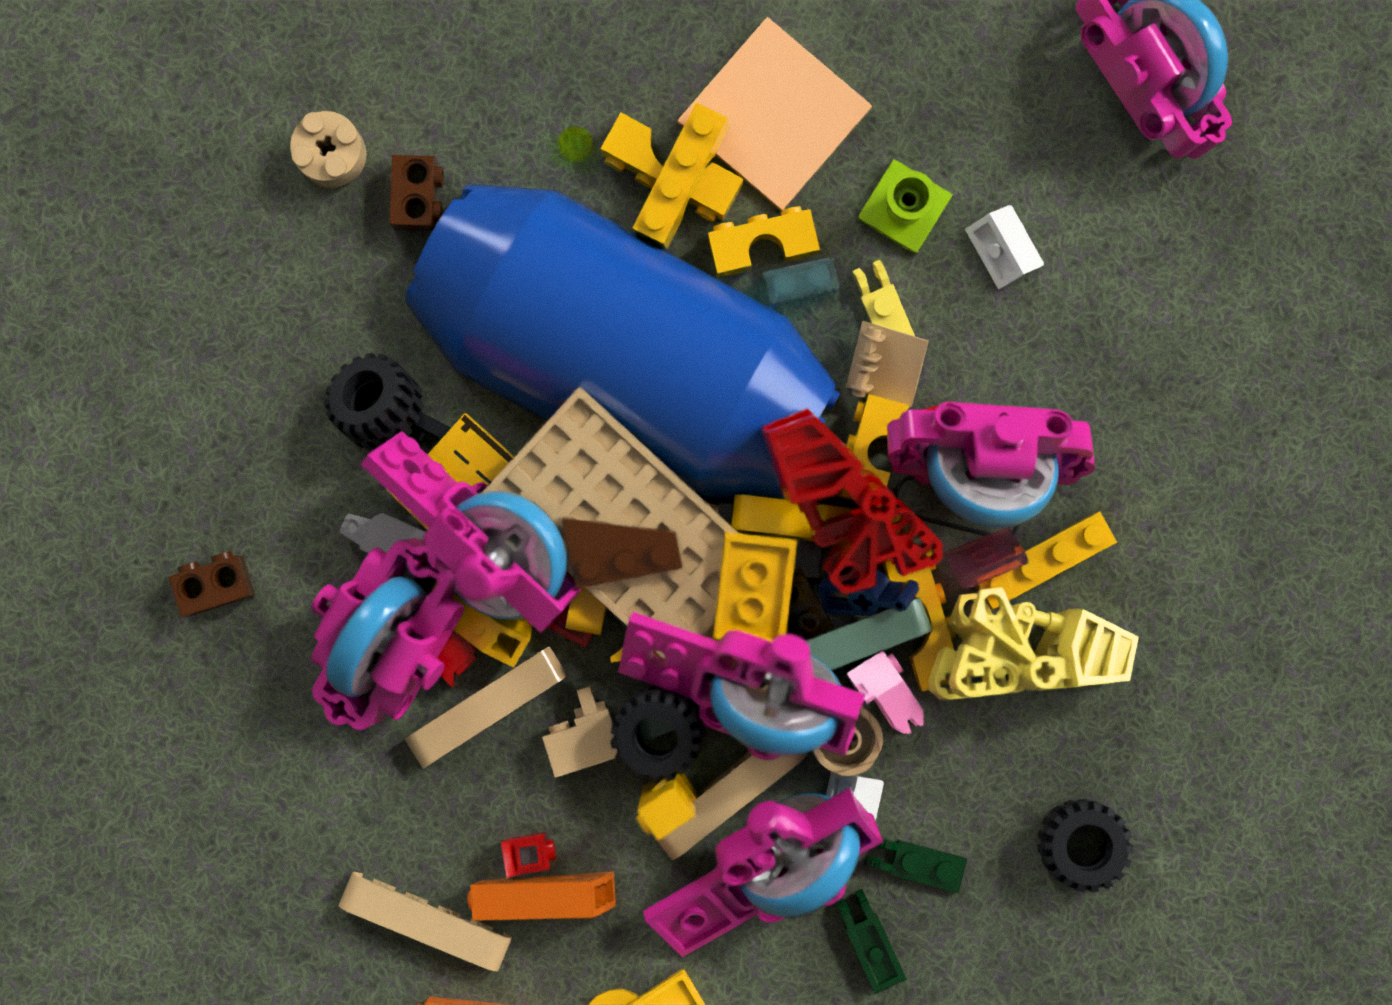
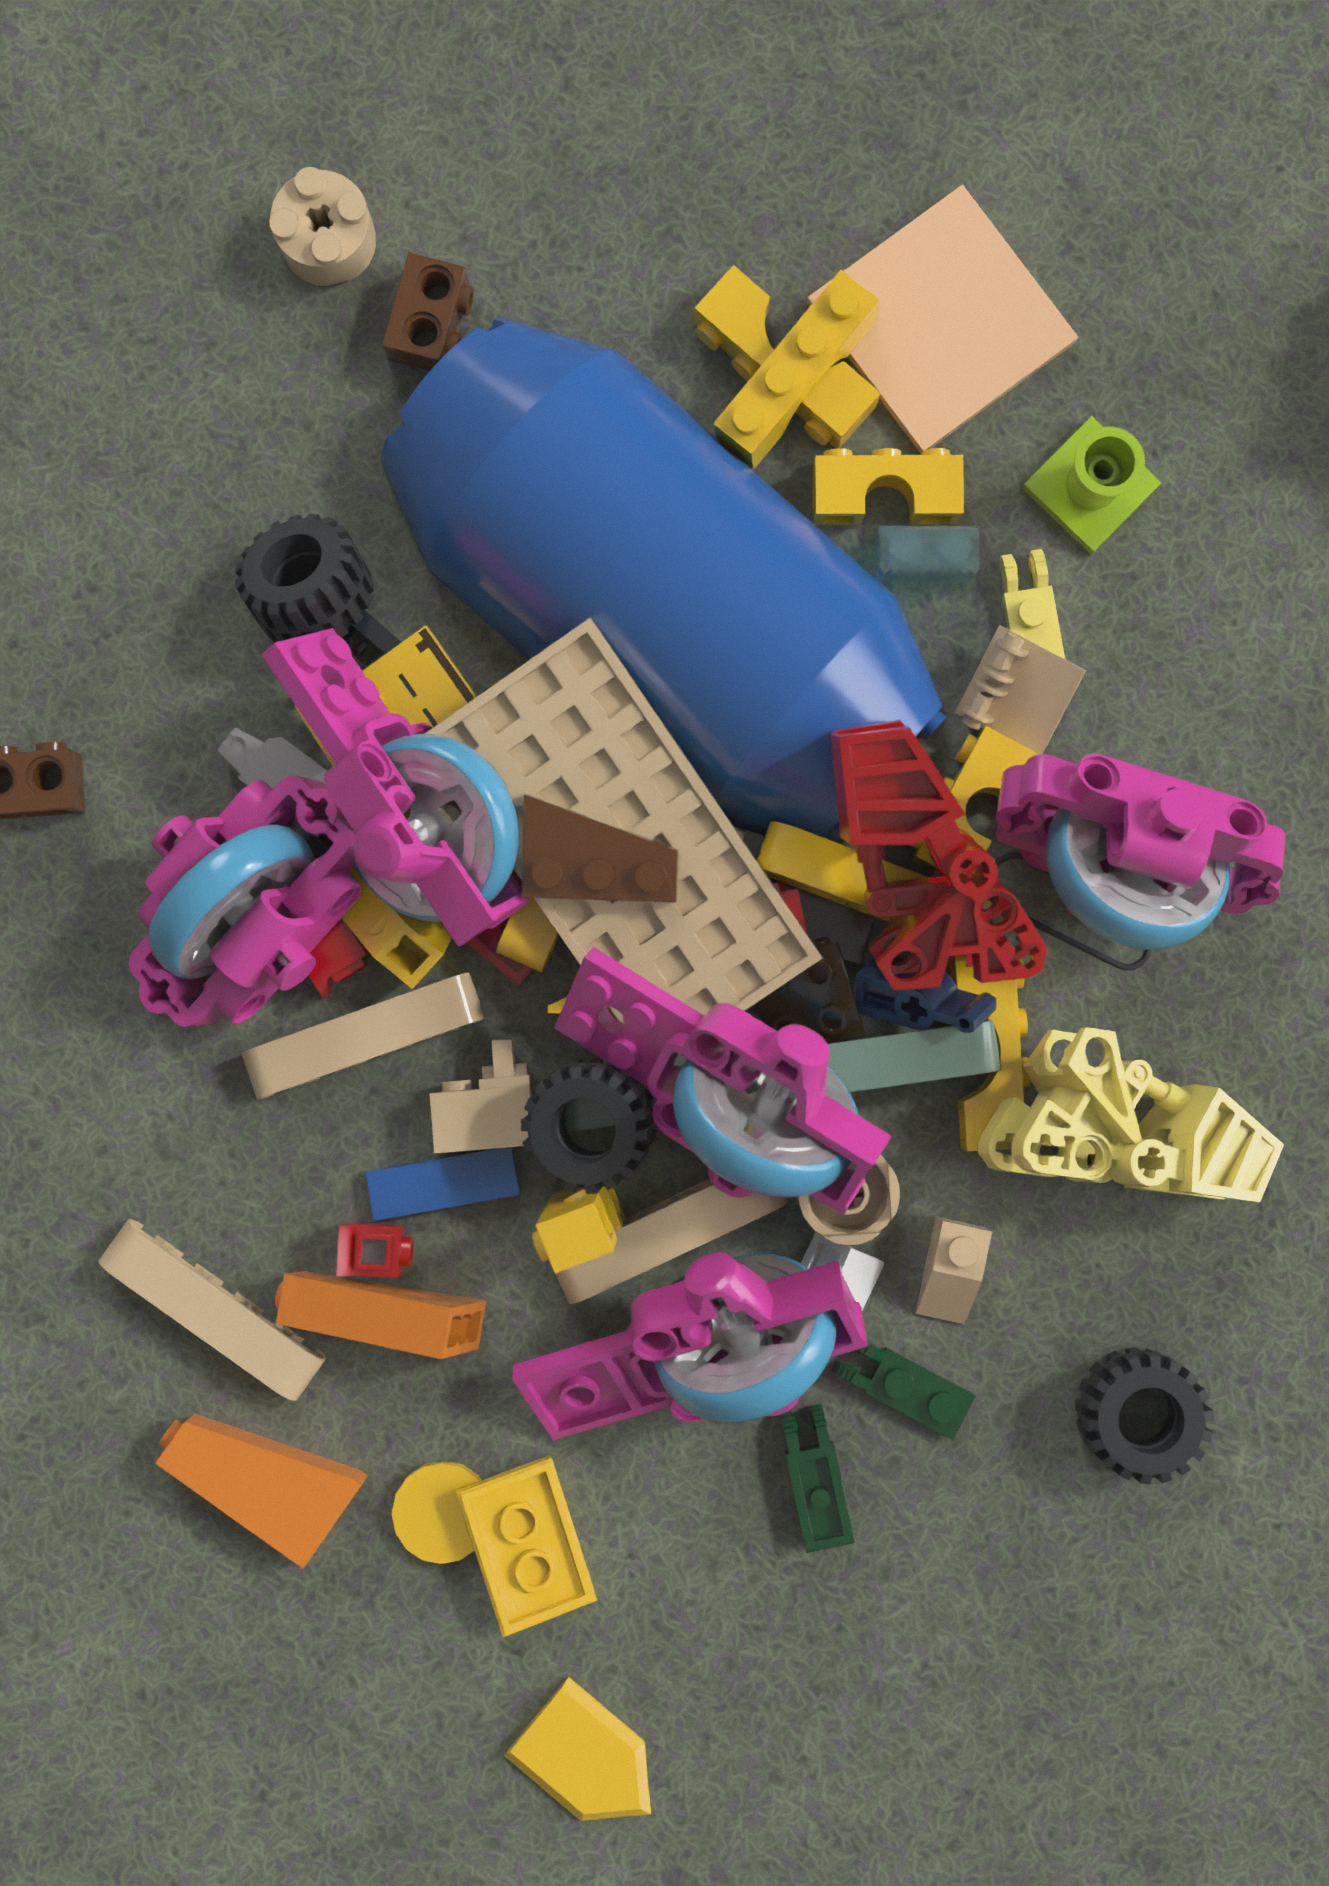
camera: 15 degrees right, 0 degrees up
(565, 796) = (443, 1183): none -> blue tile
(575, 144) = (661, 299): clear neon green tile -> none
(754, 585) = (770, 949): yellow tile -> none
(881, 682) = (921, 1141): bright pink piece -> none
(931, 775) = (953, 1269): none -> tan slope
(986, 558) = (1097, 988): clear pink tile -> none
(1004, 246) = (1215, 569): white panel -> none
(1053, 556) = (1181, 1007): yellow arch -> none

